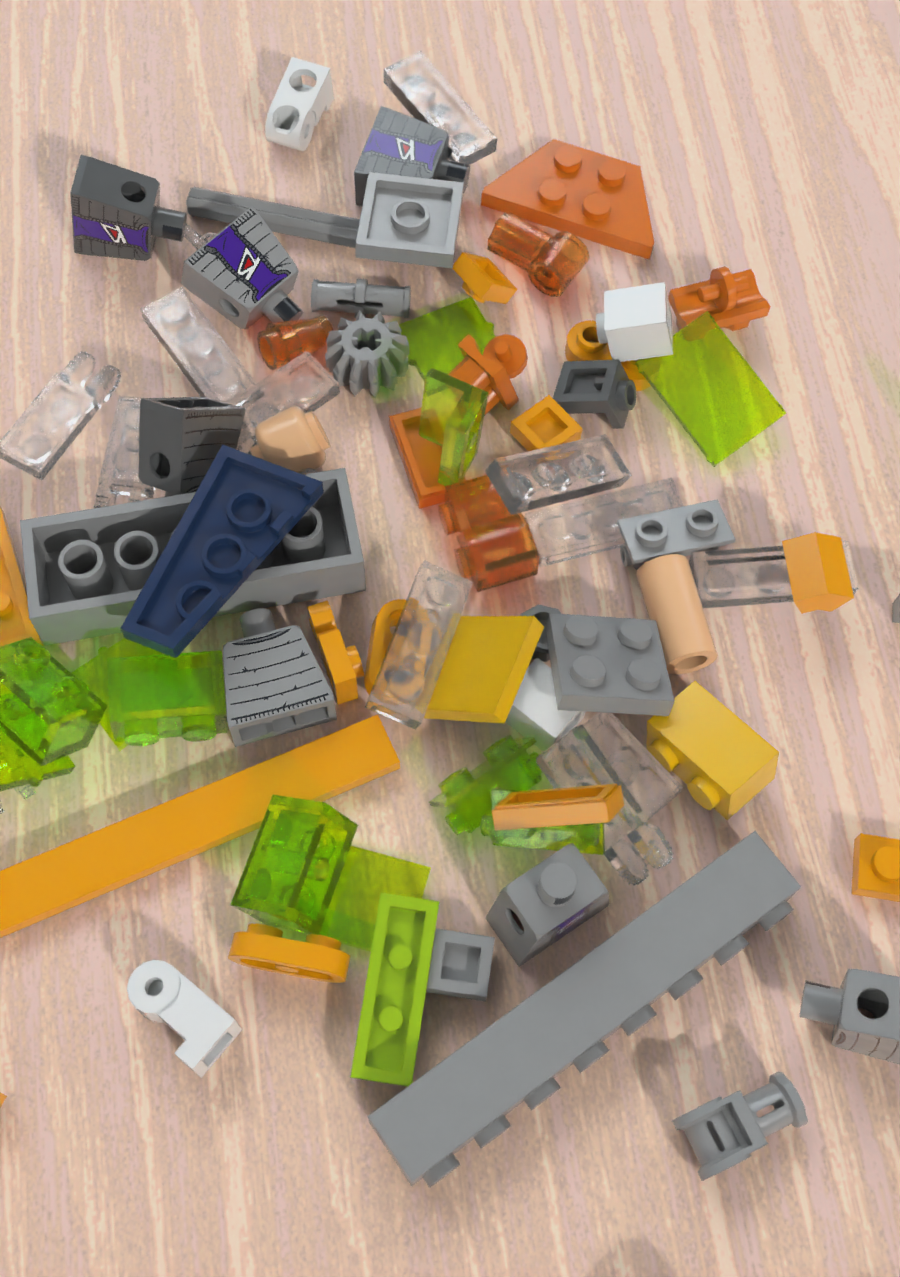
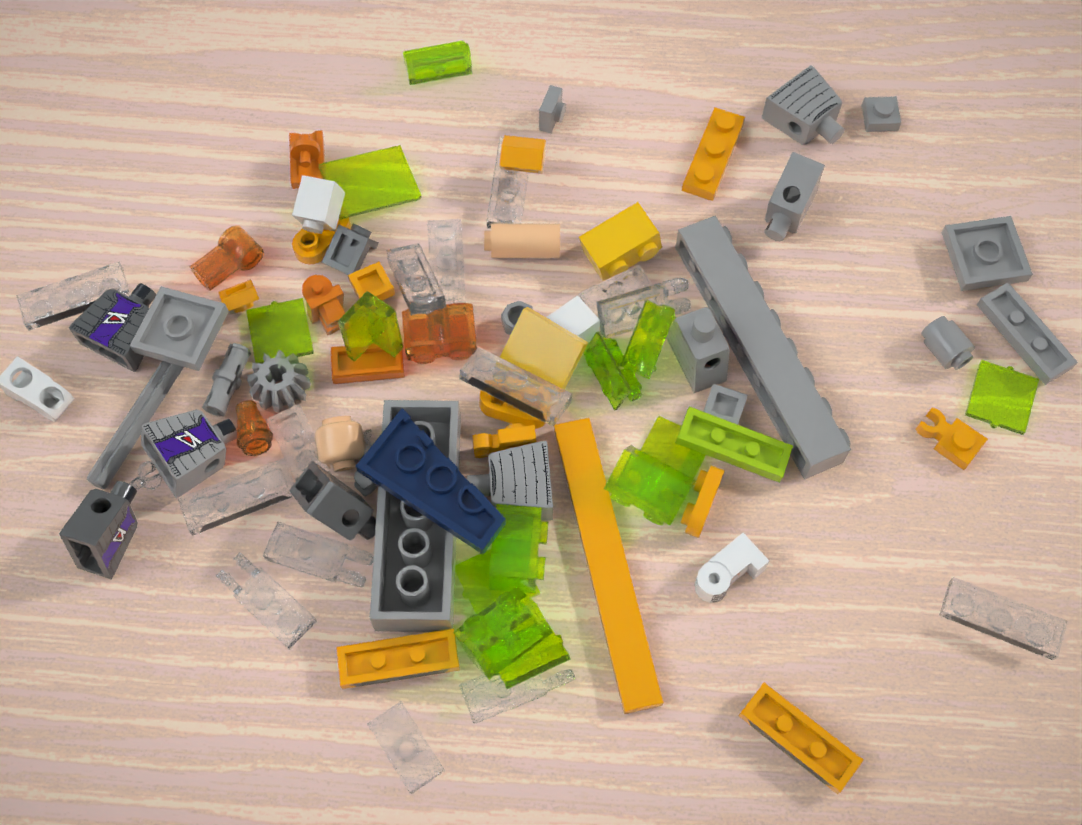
camera: 75 degrees left, 0 degrees up
(558, 807) = (650, 322): light orange tile -> none
(578, 195) = (182, 224): orange wing -> none
(608, 665) = (558, 279): light grey plate -> none
(674, 532) = (471, 227): light grey hinge -> none
(729, 1128) = (836, 288): light grey connector -> none

